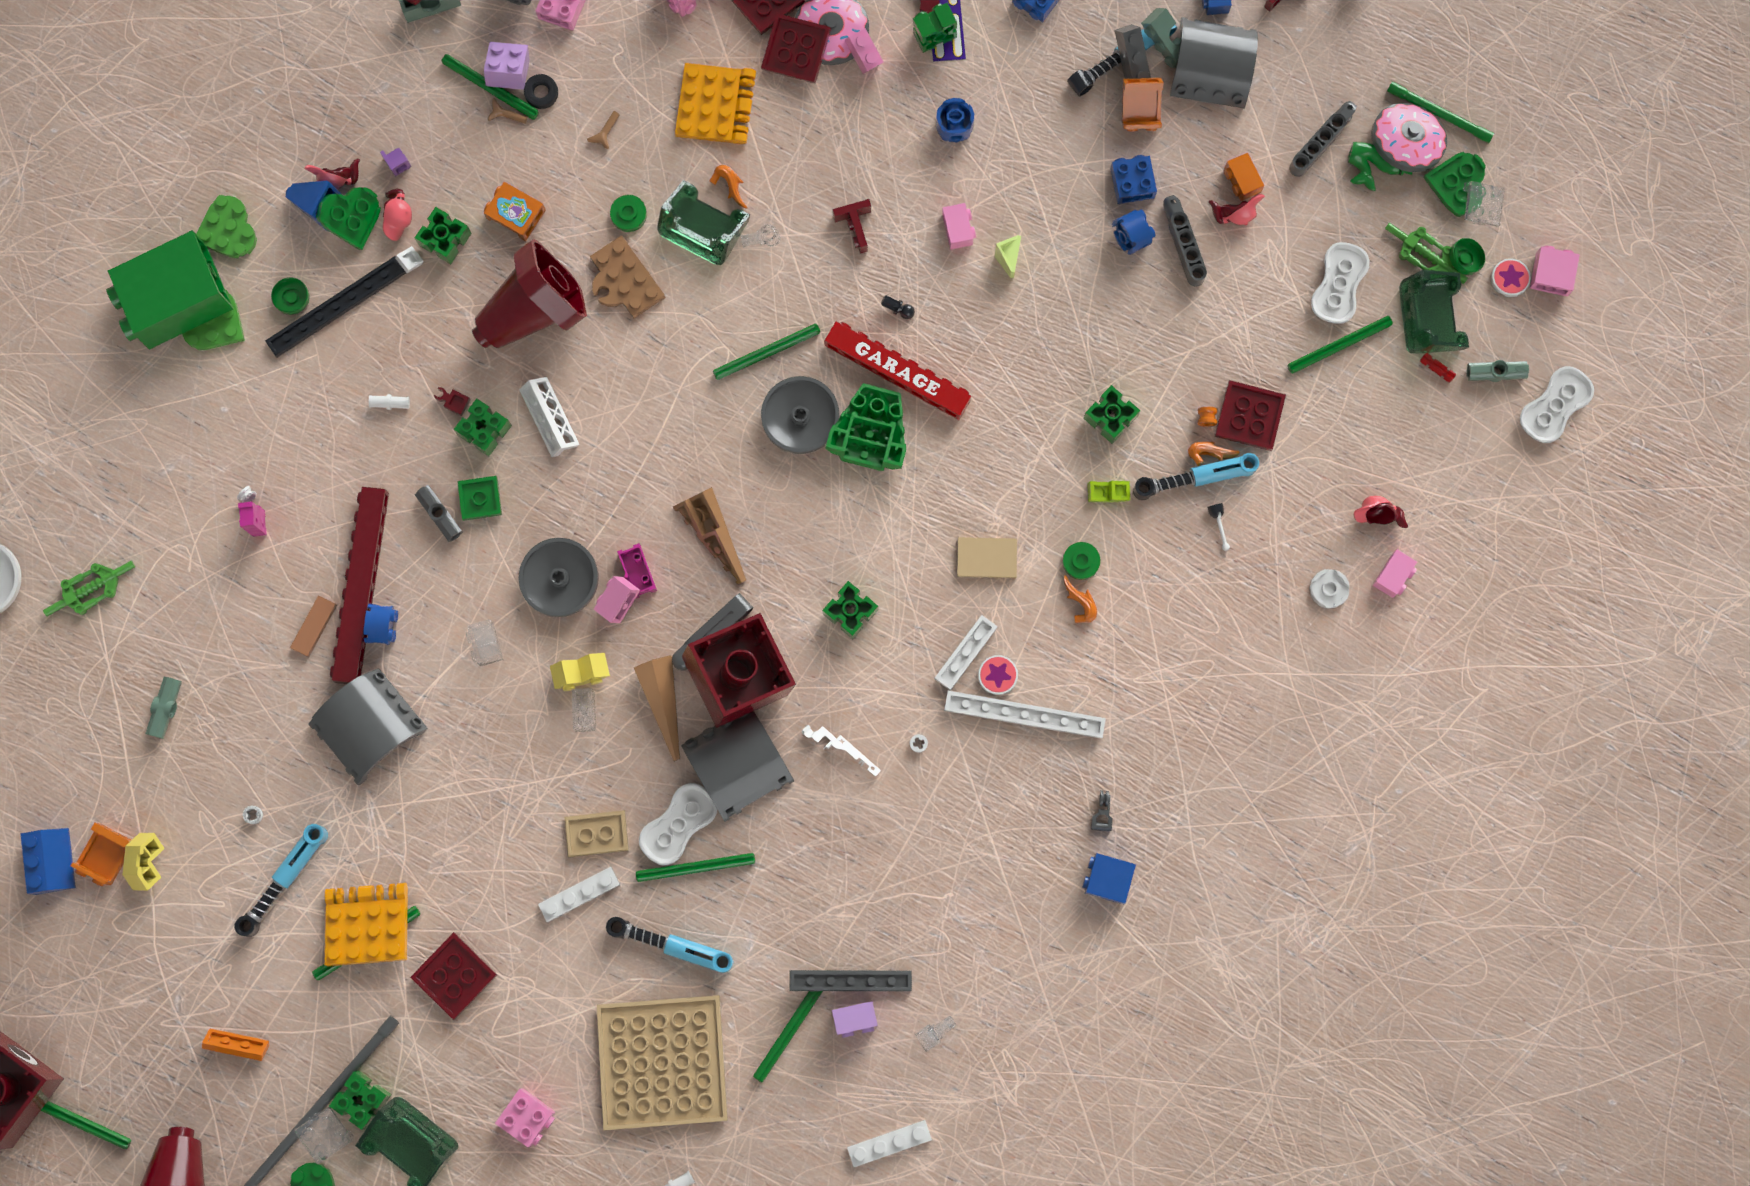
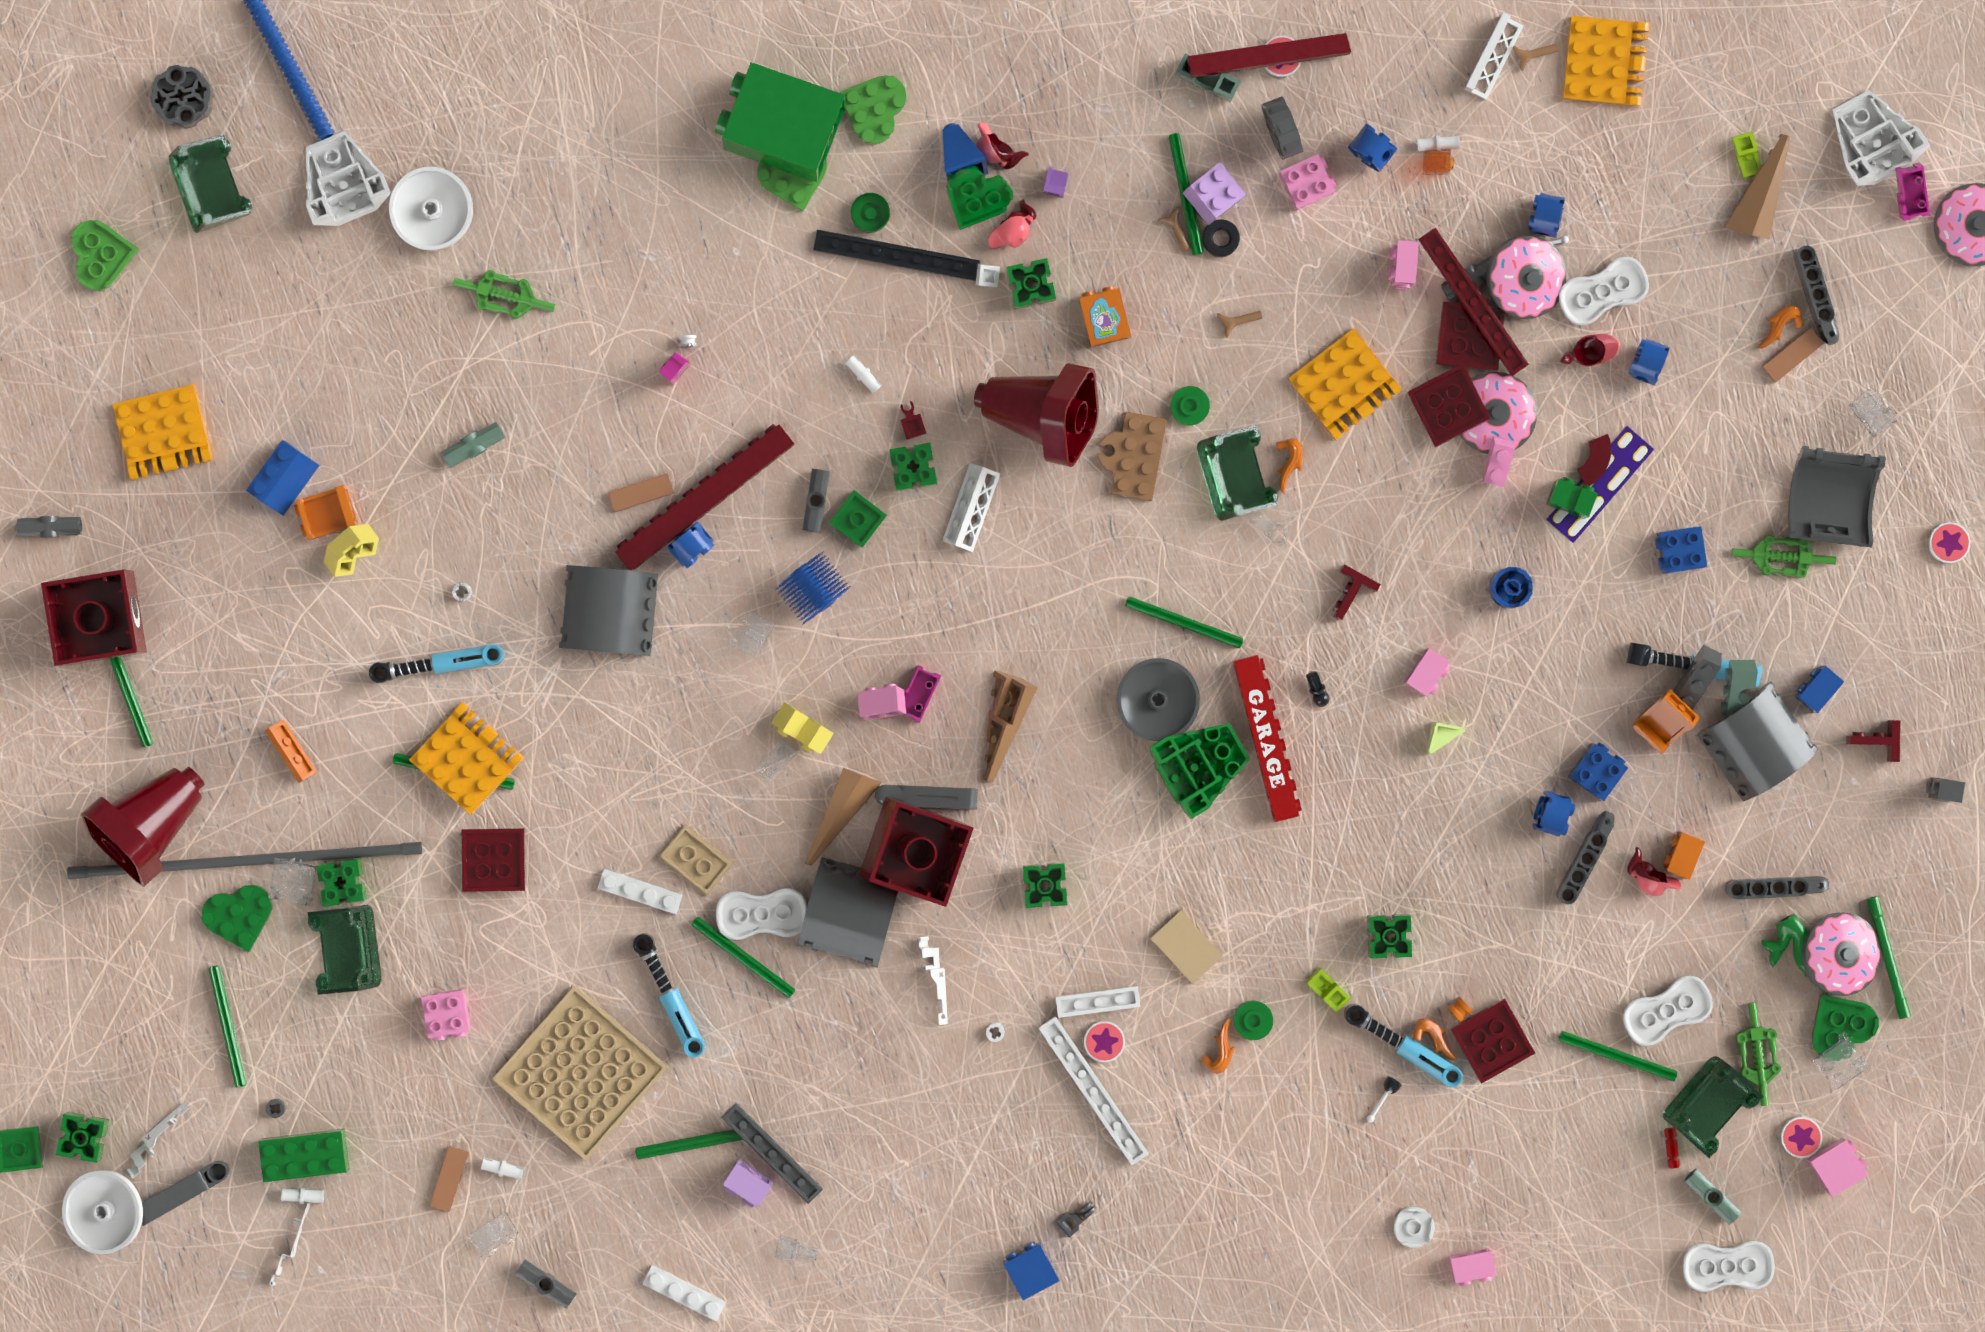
camera: 40 degrees right, 10 degrees up
(491, 569) = (812, 587): none -> blue piece
(558, 577) = (856, 641): dark grey dish -> none
(1380, 511) = (1511, 1209): dark red hair -> none
(1467, 256) = (1785, 1088): green piece -> none

